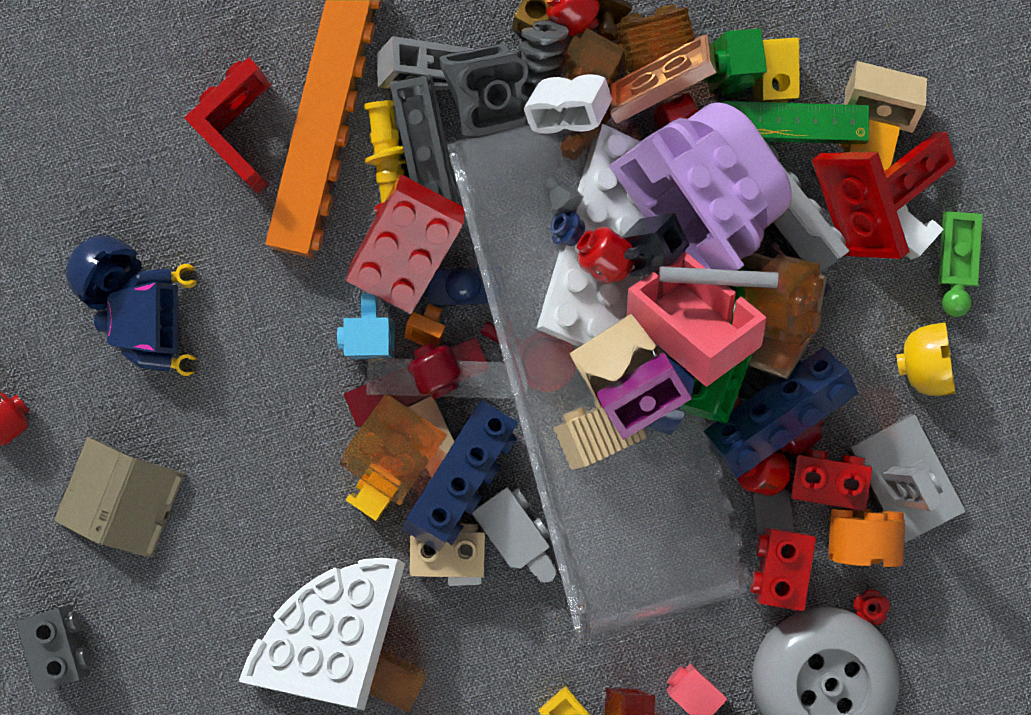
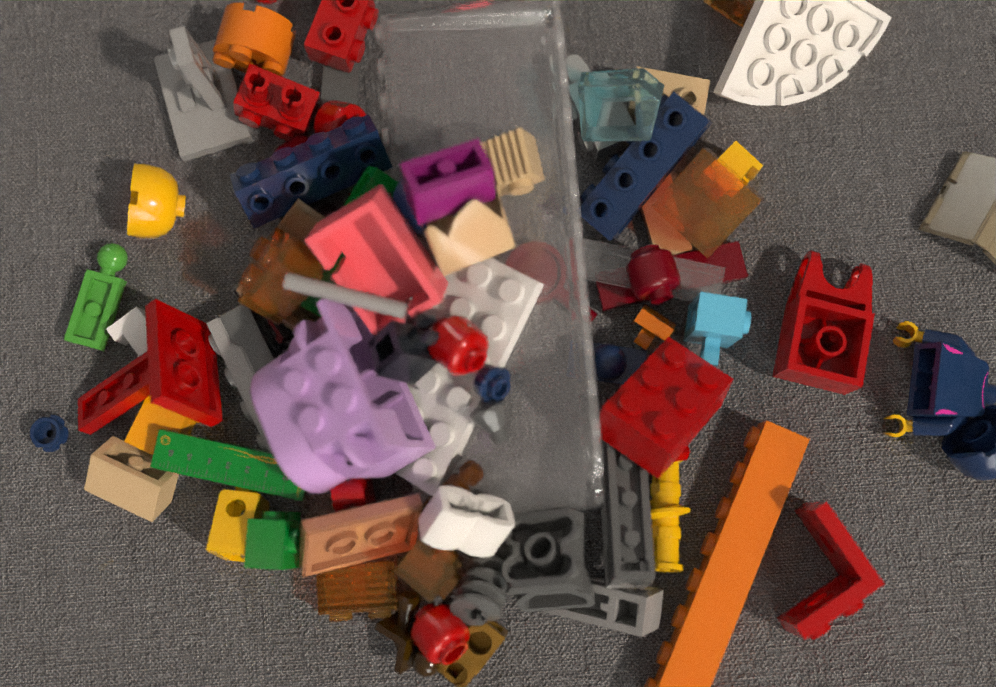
camera: 165 degrees left, 5 degrees down
(255, 365) = (826, 329): none -> red brick
(469, 530) = (618, 86): none -> clear light blue tile
(981, 121) = (39, 432): none -> dark blue plate

